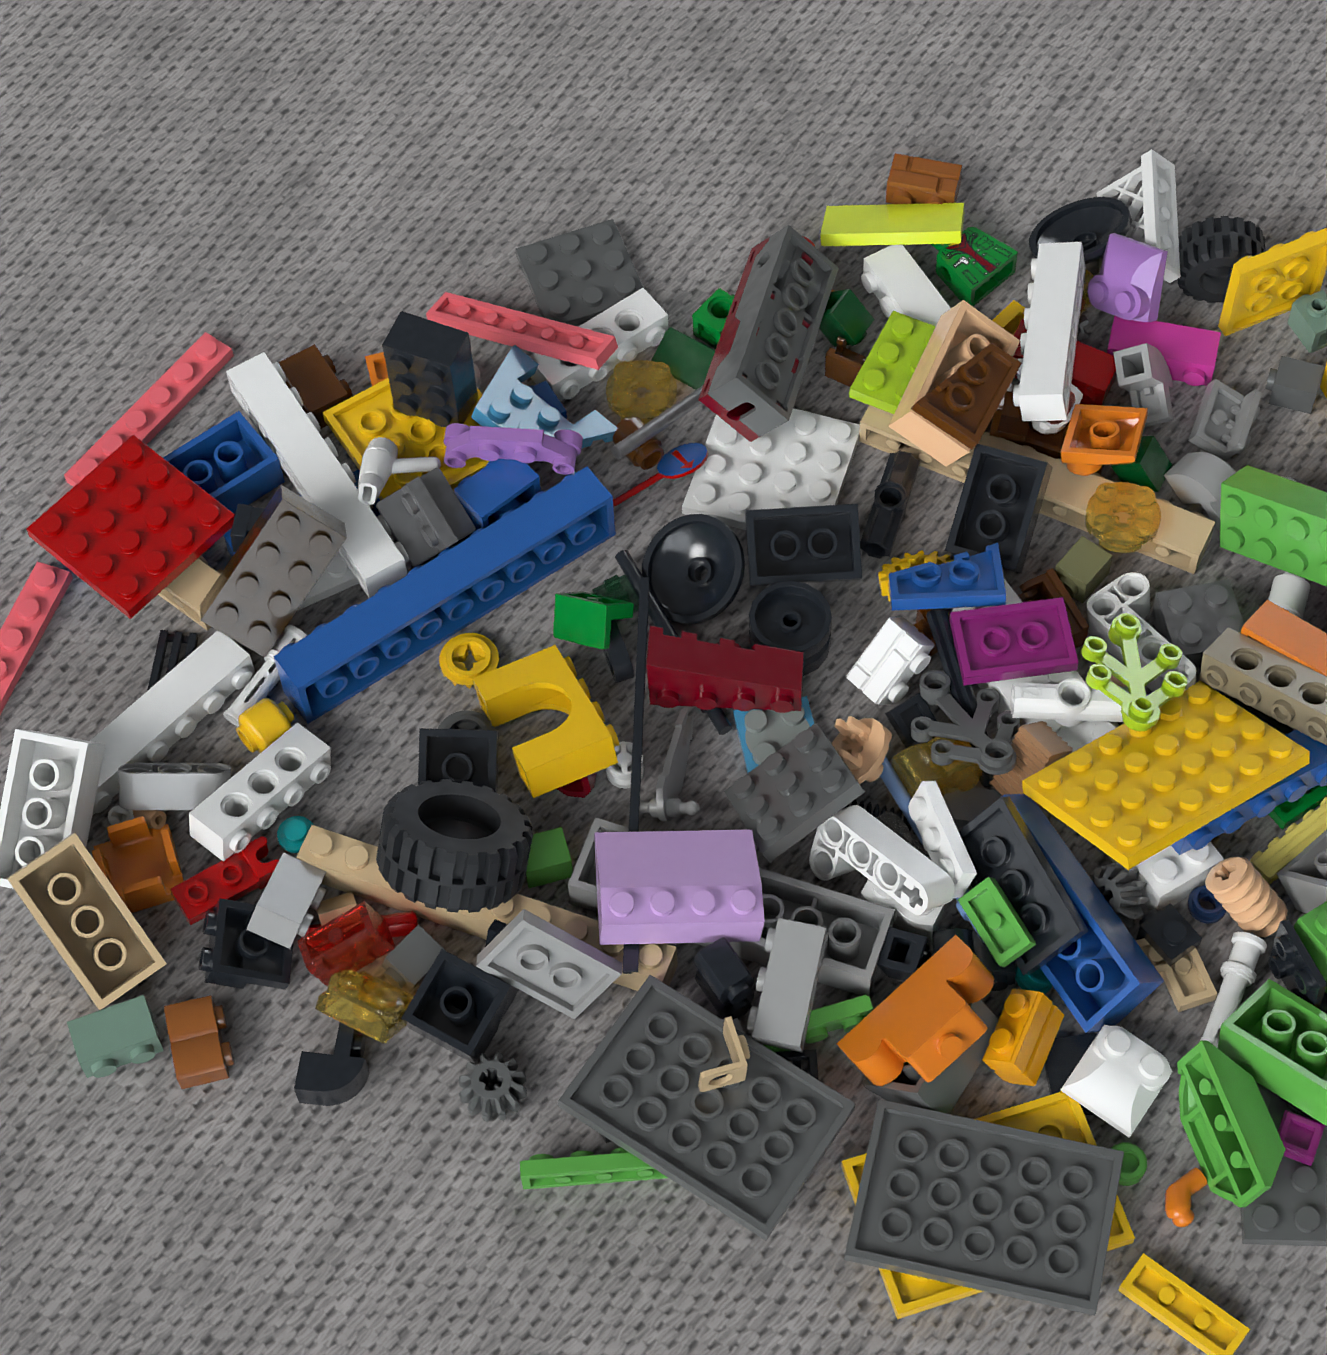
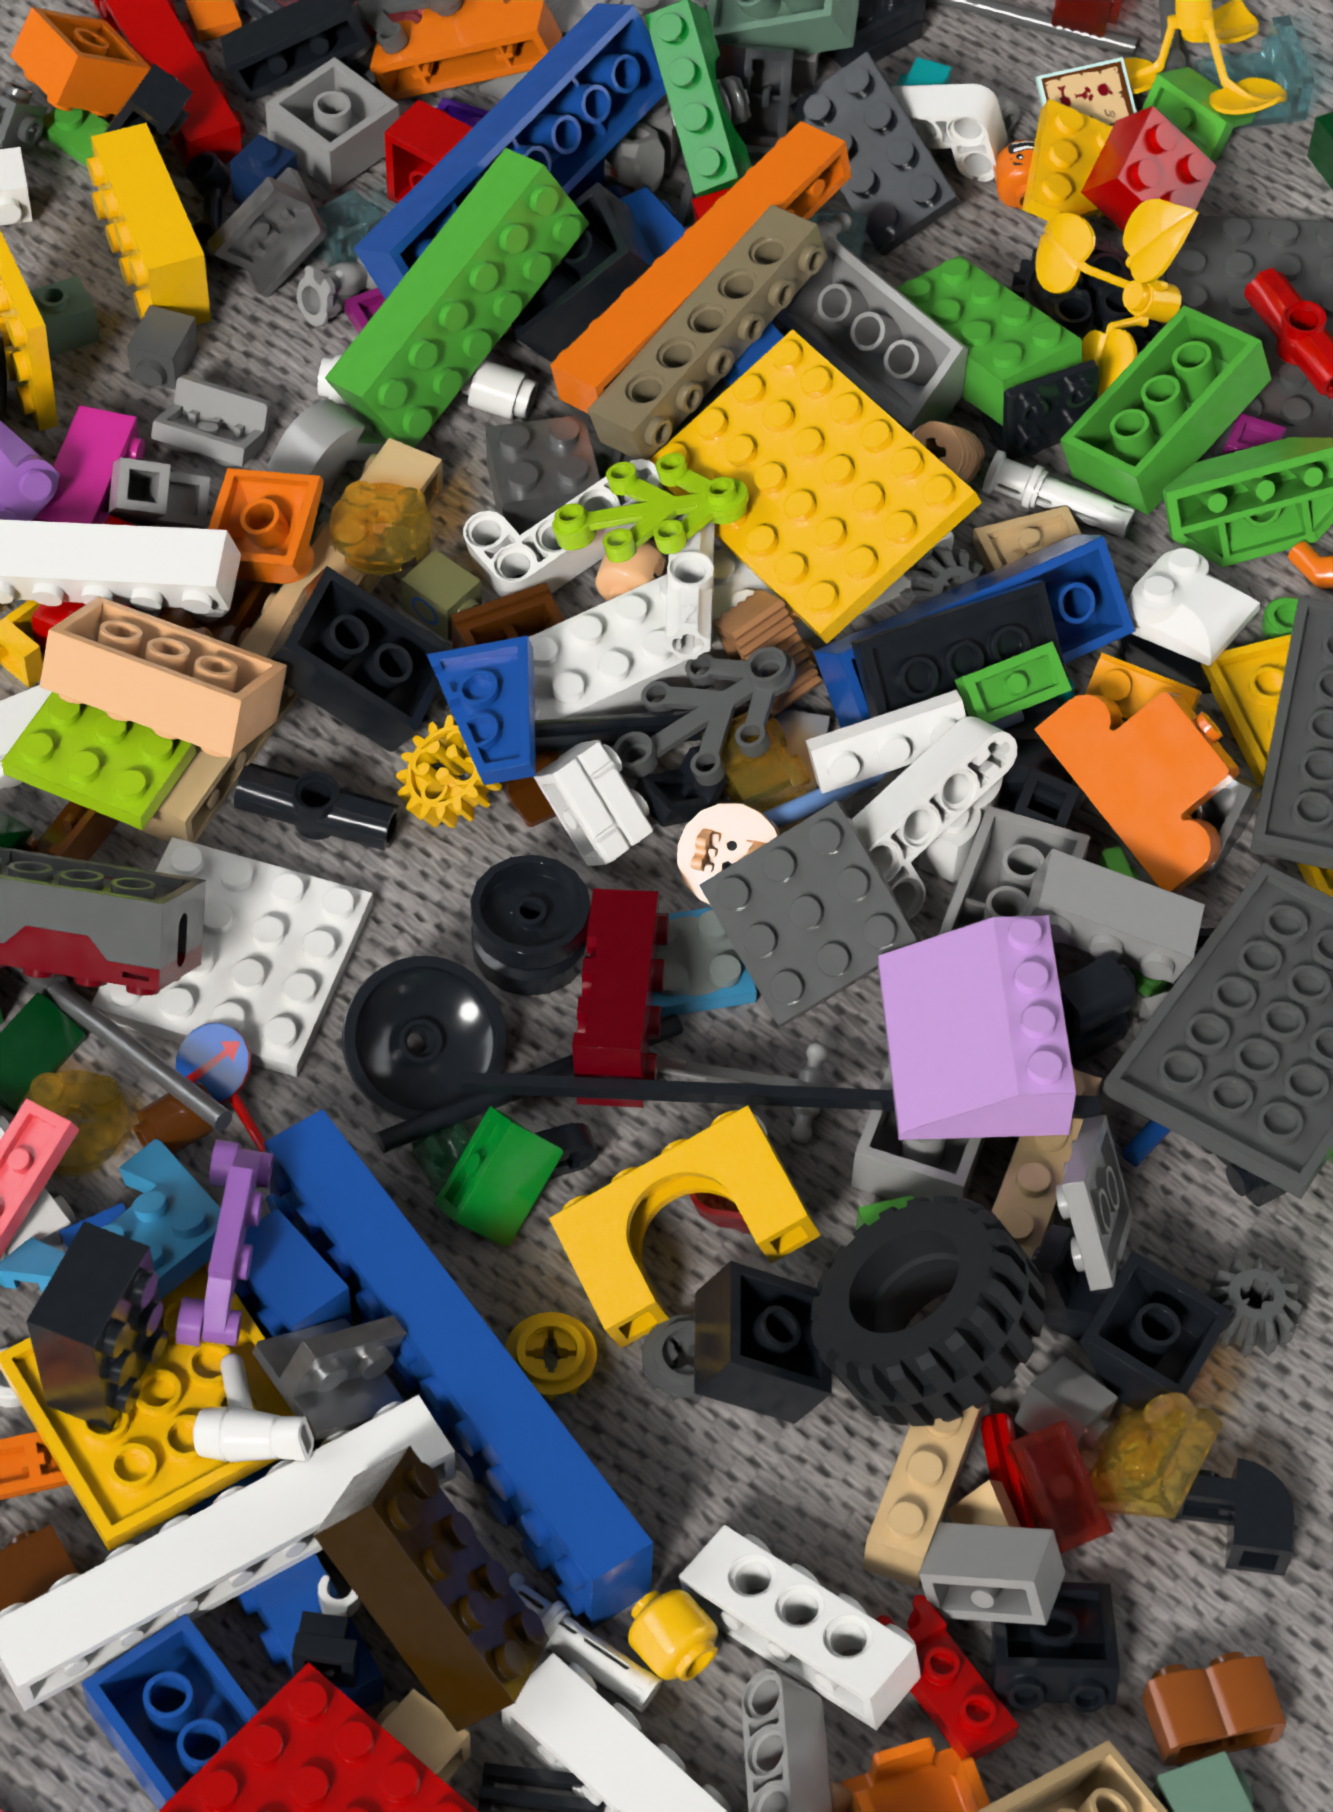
camera: 95 degrees left, 5 degrees down
(293, 833) = (859, 1582): teal plate -> none
(737, 1070) = (1228, 970): tan bracket -> none
(803, 544) = (395, 889): black brick -> none
(970, 395) = (210, 637): reddish brown wing -> none
(1013, 641) = (590, 643): magenta plate -> none
(1168, 933) = (994, 539): black bracket -> none

